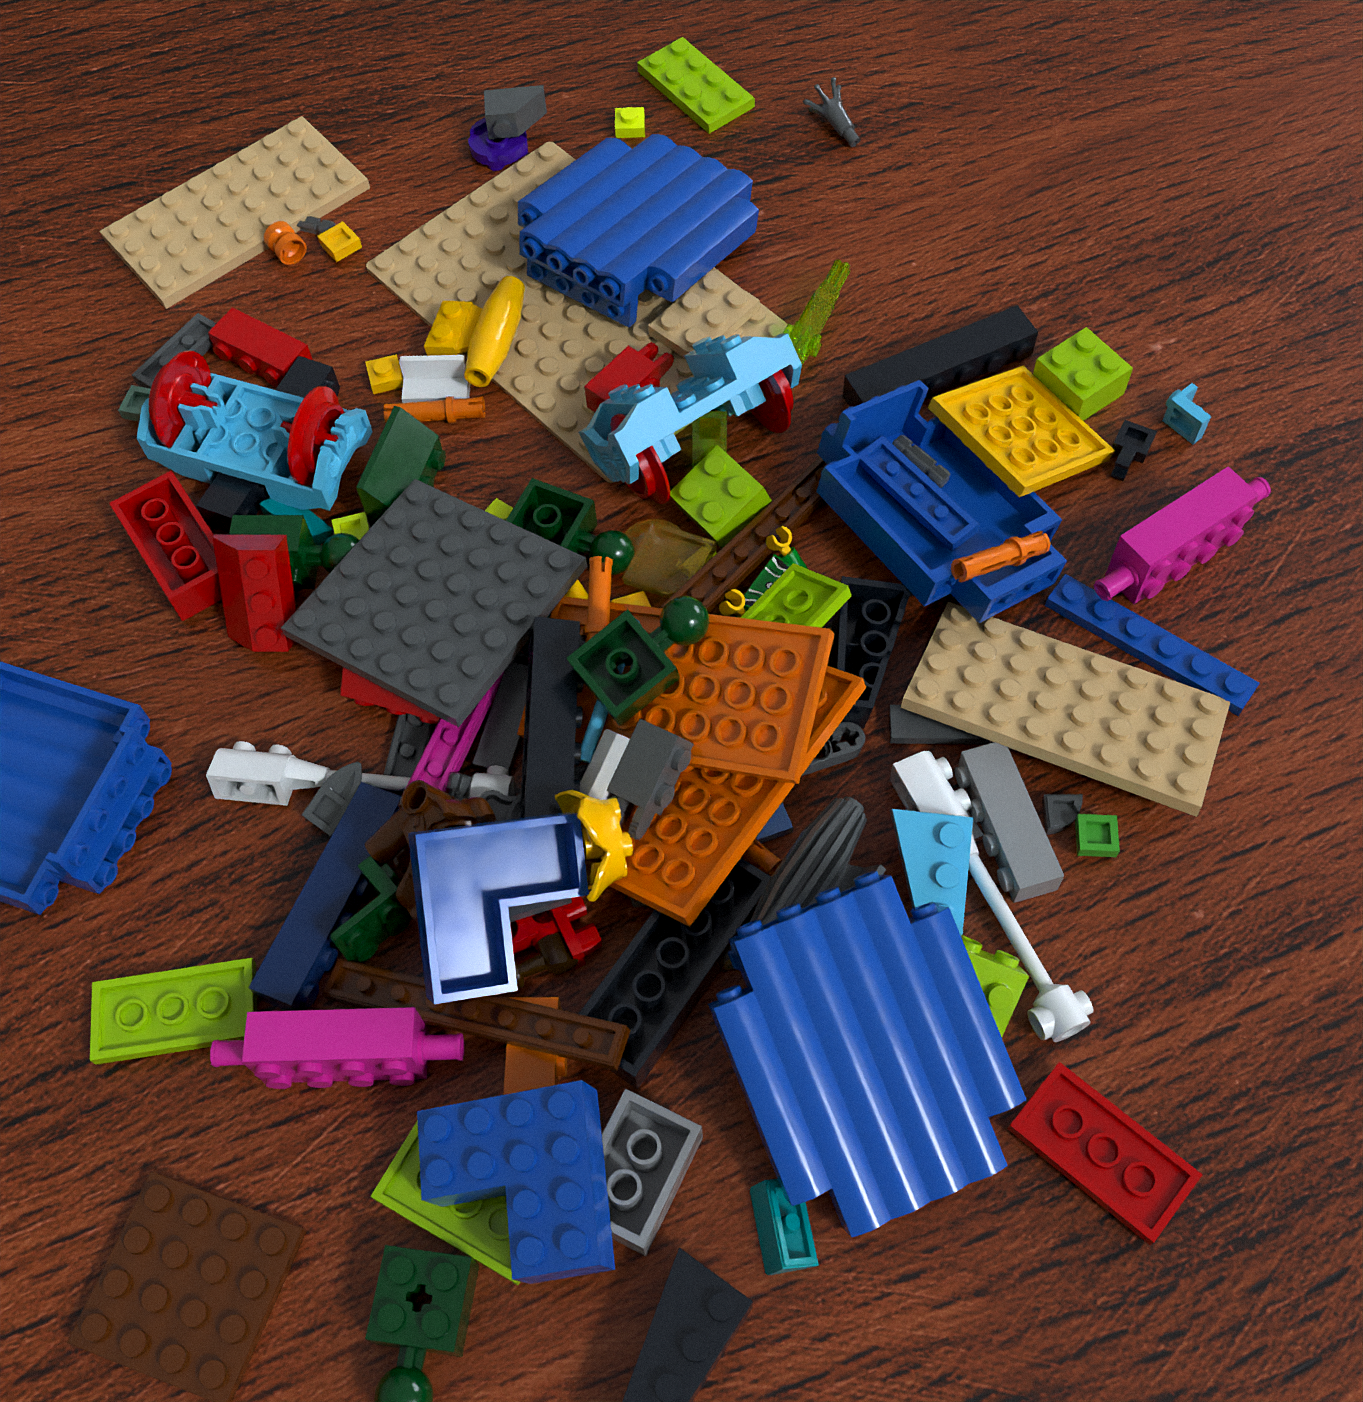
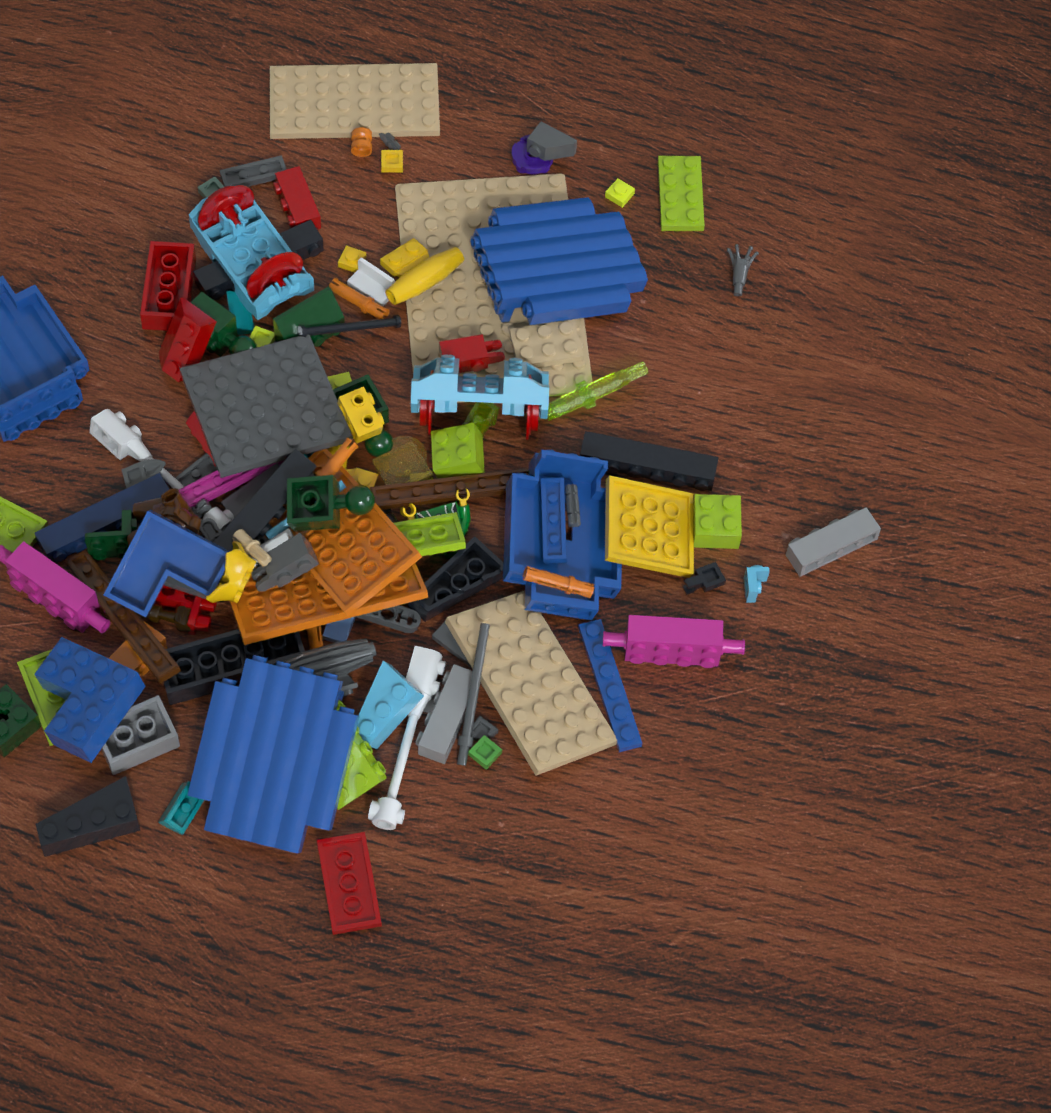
camera: 30 degrees right, 0 degrees up
(500, 407) = (395, 321): none -> black bar
(573, 523) = (361, 414): none -> yellow brick
(589, 784) = (252, 547): none -> tan axle
(1061, 838) = (465, 741): none -> dark grey bar
(1219, 316) = (832, 541): none -> light grey brick

